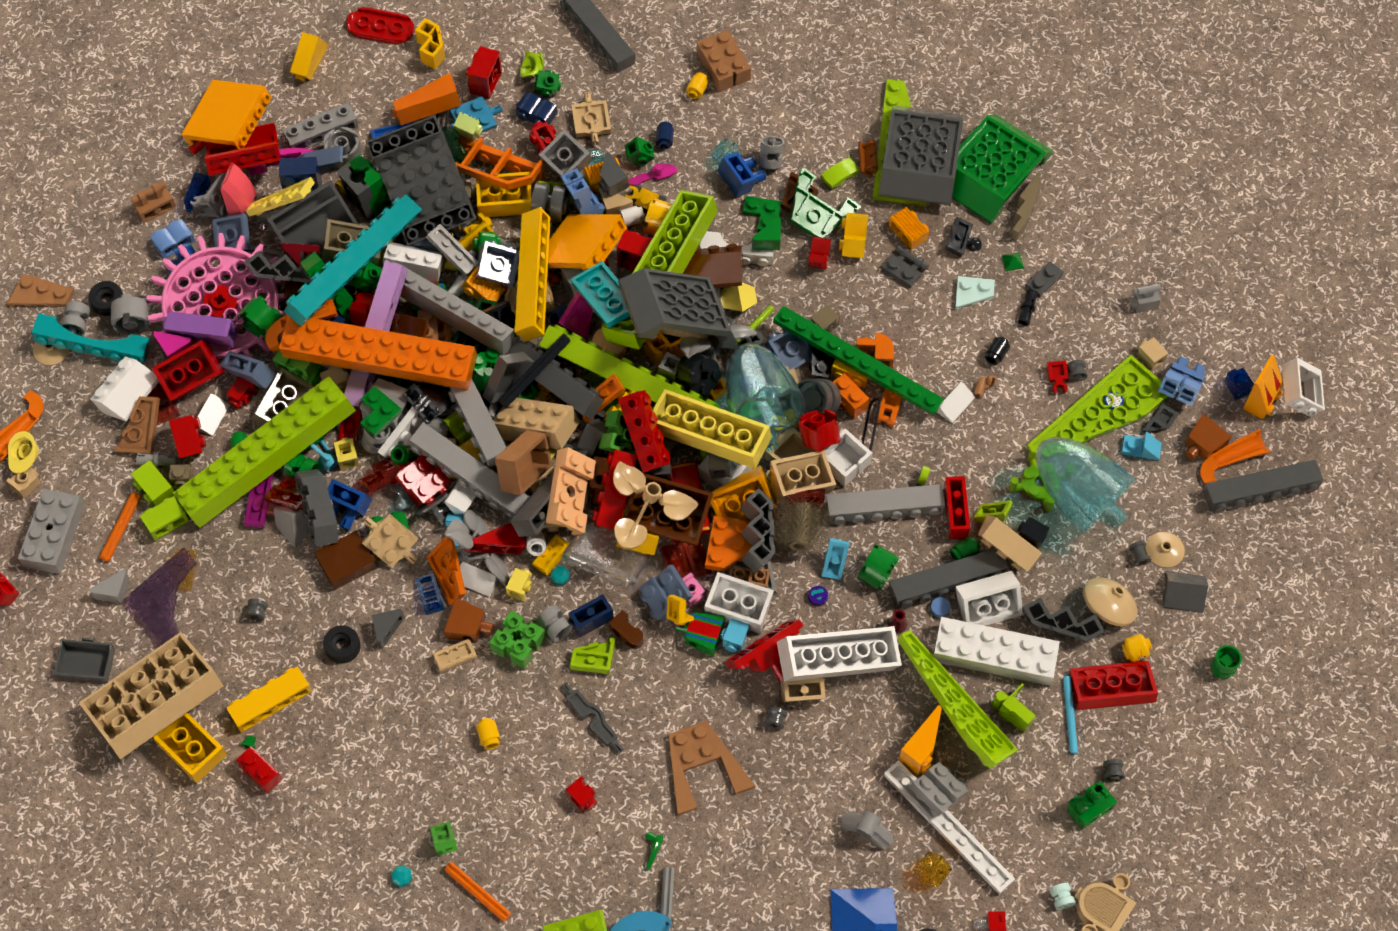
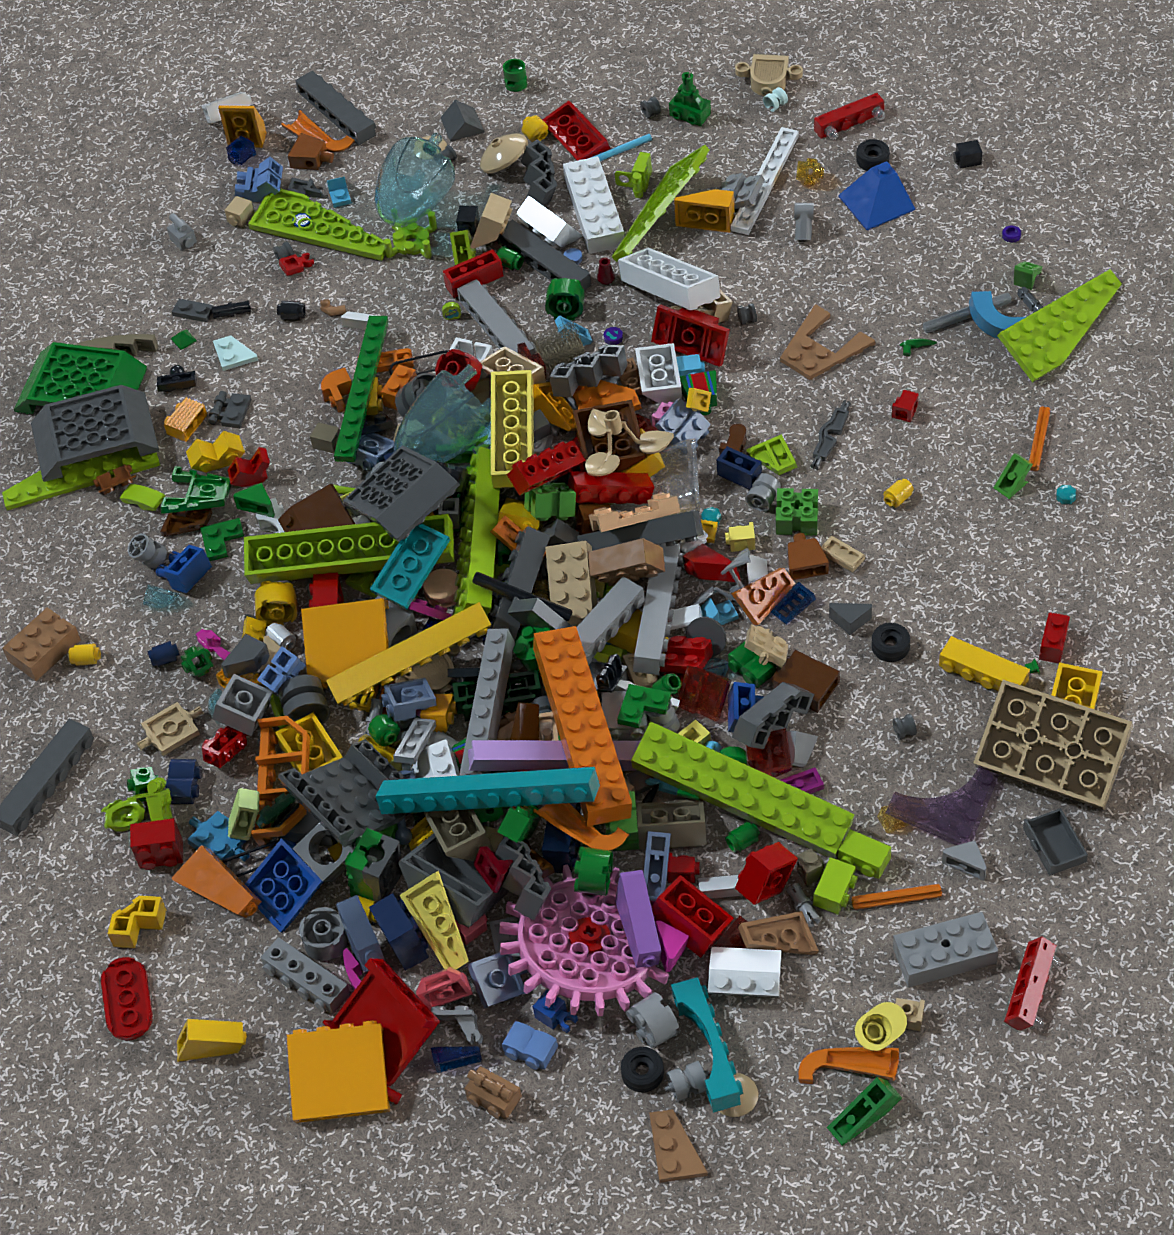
camera: 110 degrees left, 10 degrees down
(517, 81) = (157, 799): none -> lime piece

